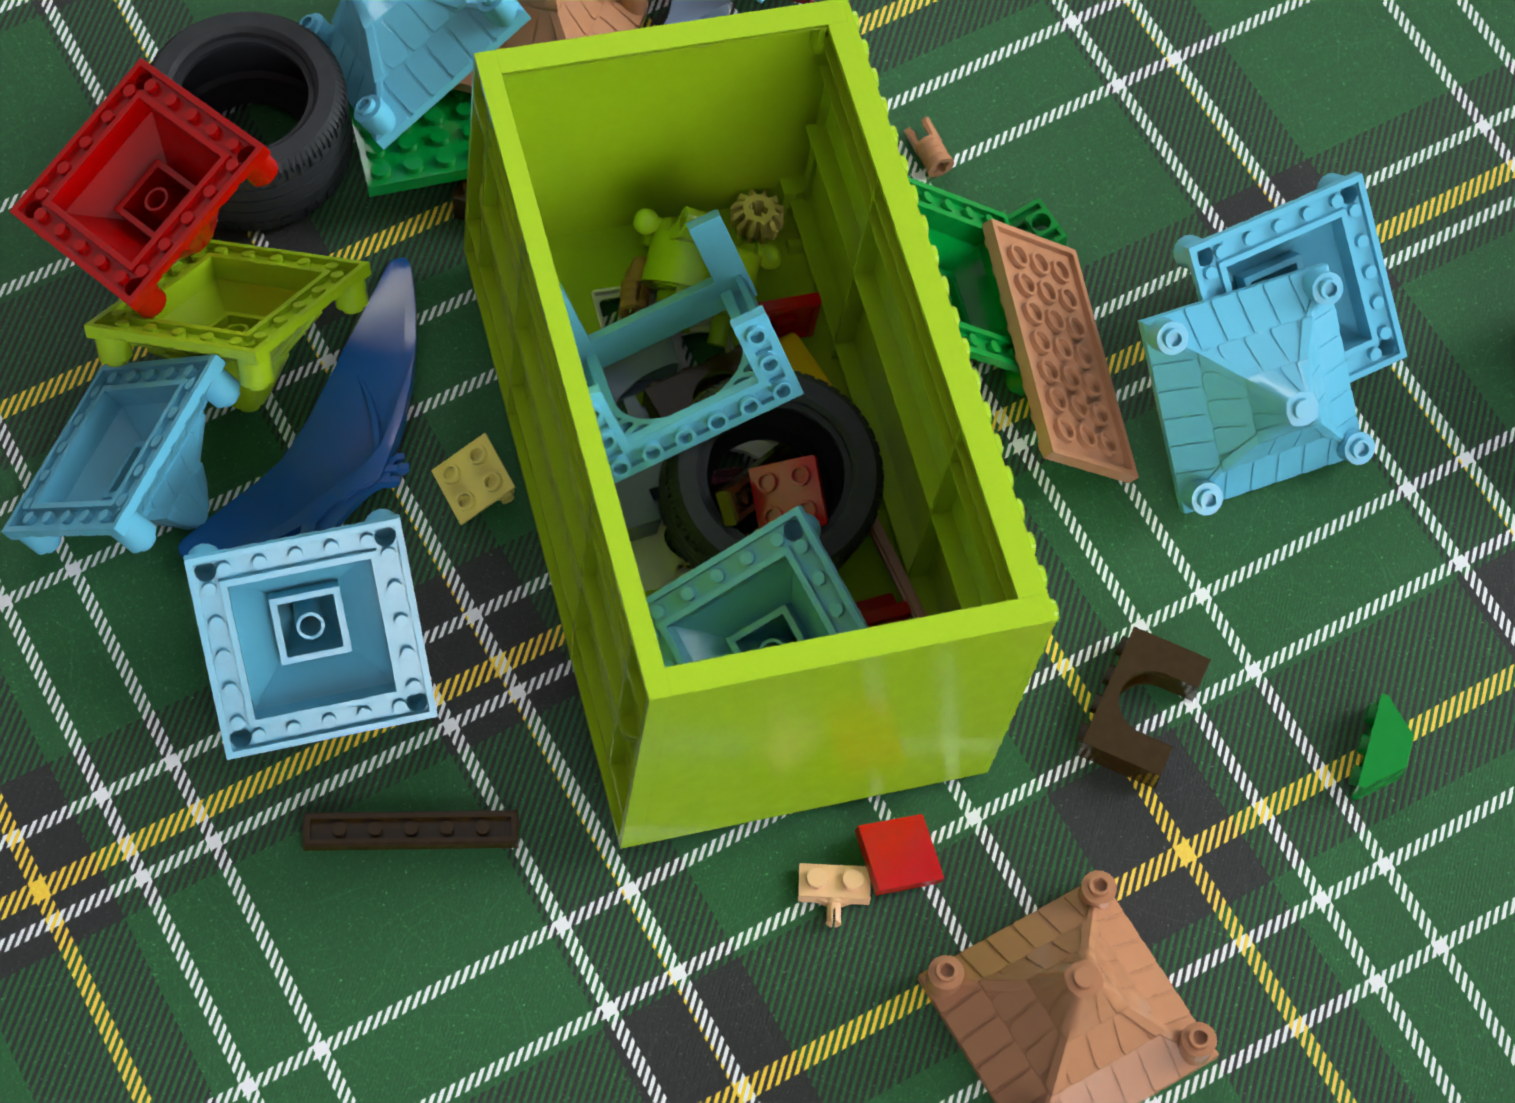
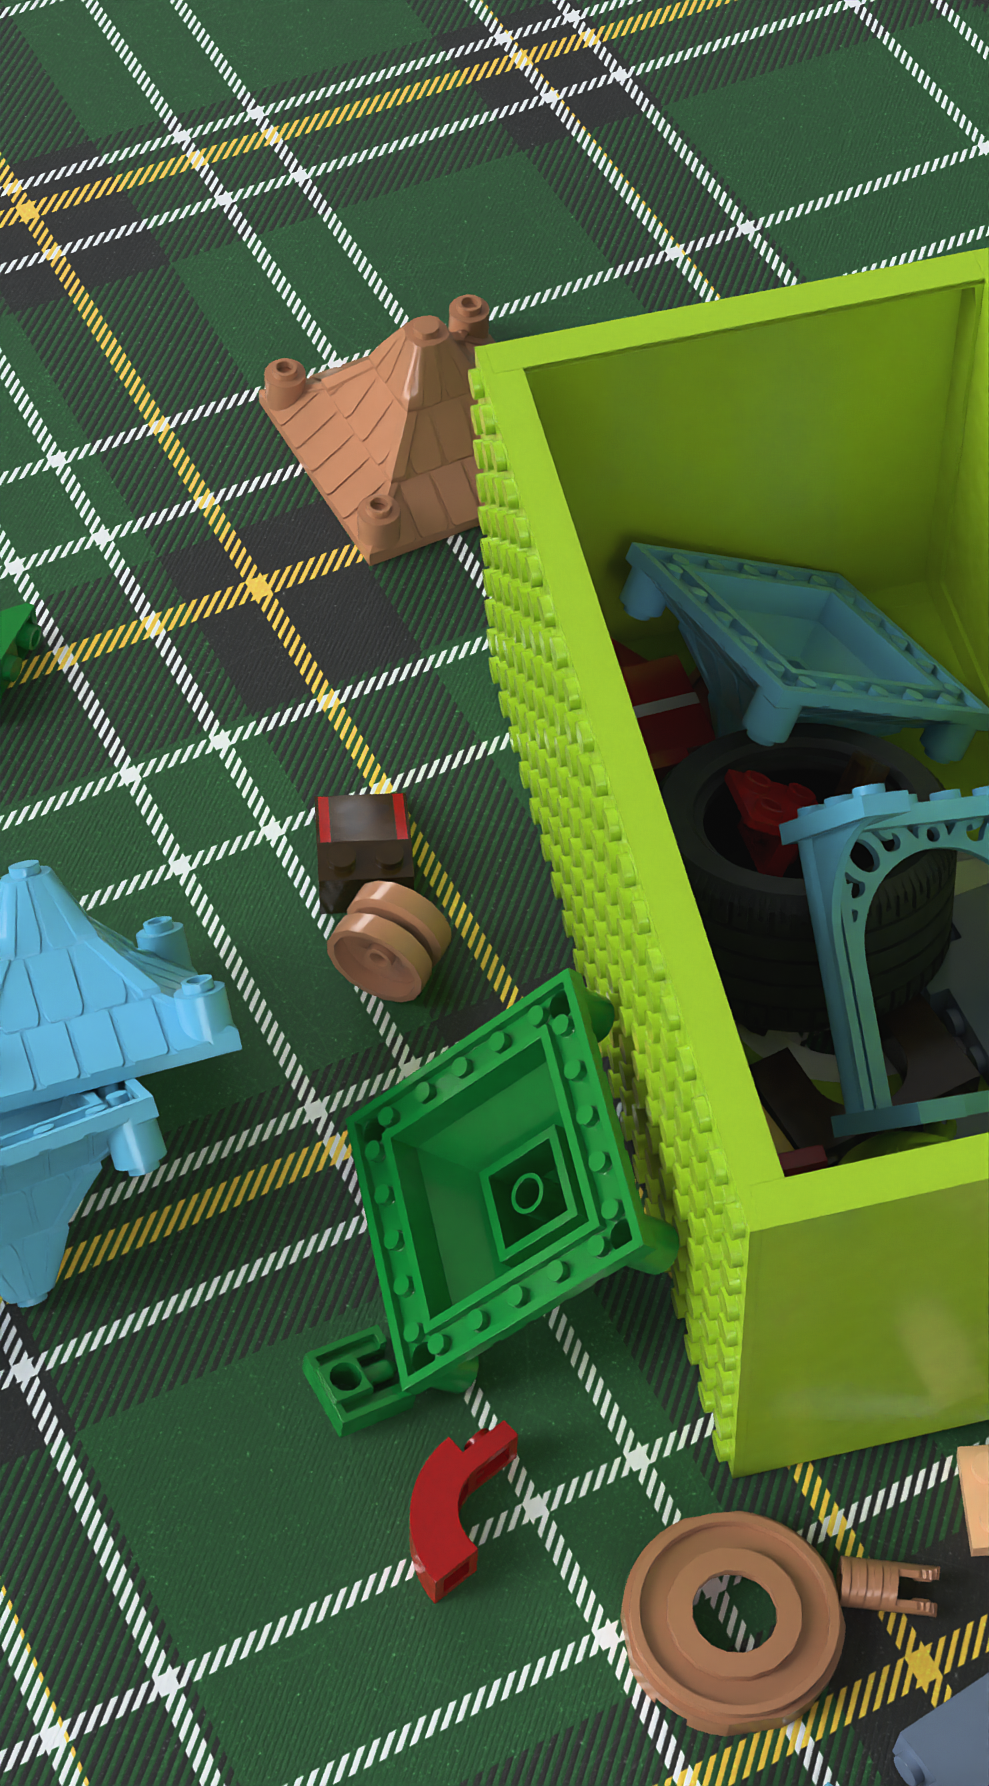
camera: 175 degrees left, 10 degrees down
(930, 149) = (519, 1540): nougat hinge -> none
(976, 143) = (438, 1543): none -> red arch
(1050, 499) = (389, 941): none -> nougat wheel
(1059, 352) = (350, 1140): nougat plate -> none
(1081, 590) = (361, 843): none -> dark brown slope
(1142, 661) = (285, 767): dark brown arch -> none

